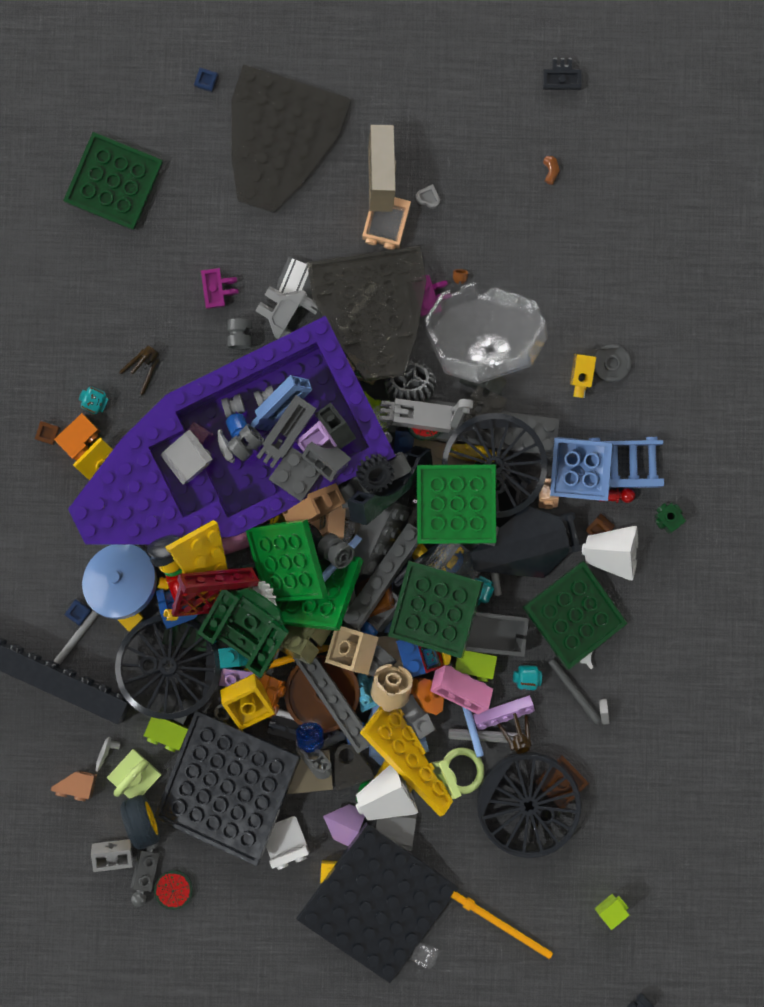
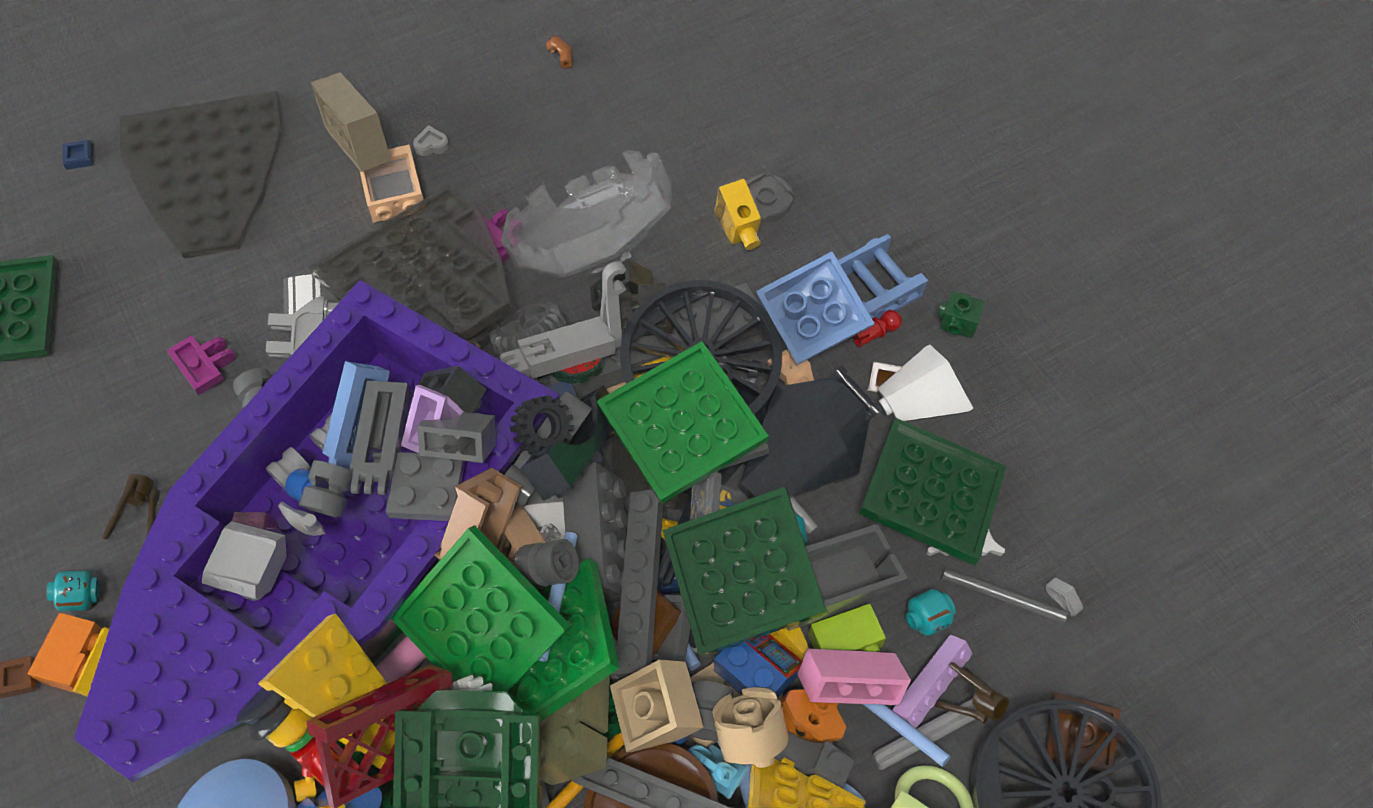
camera: 35 degrees left, 25 degrees down
(460, 275) = (519, 198): dark orange hinge -> none

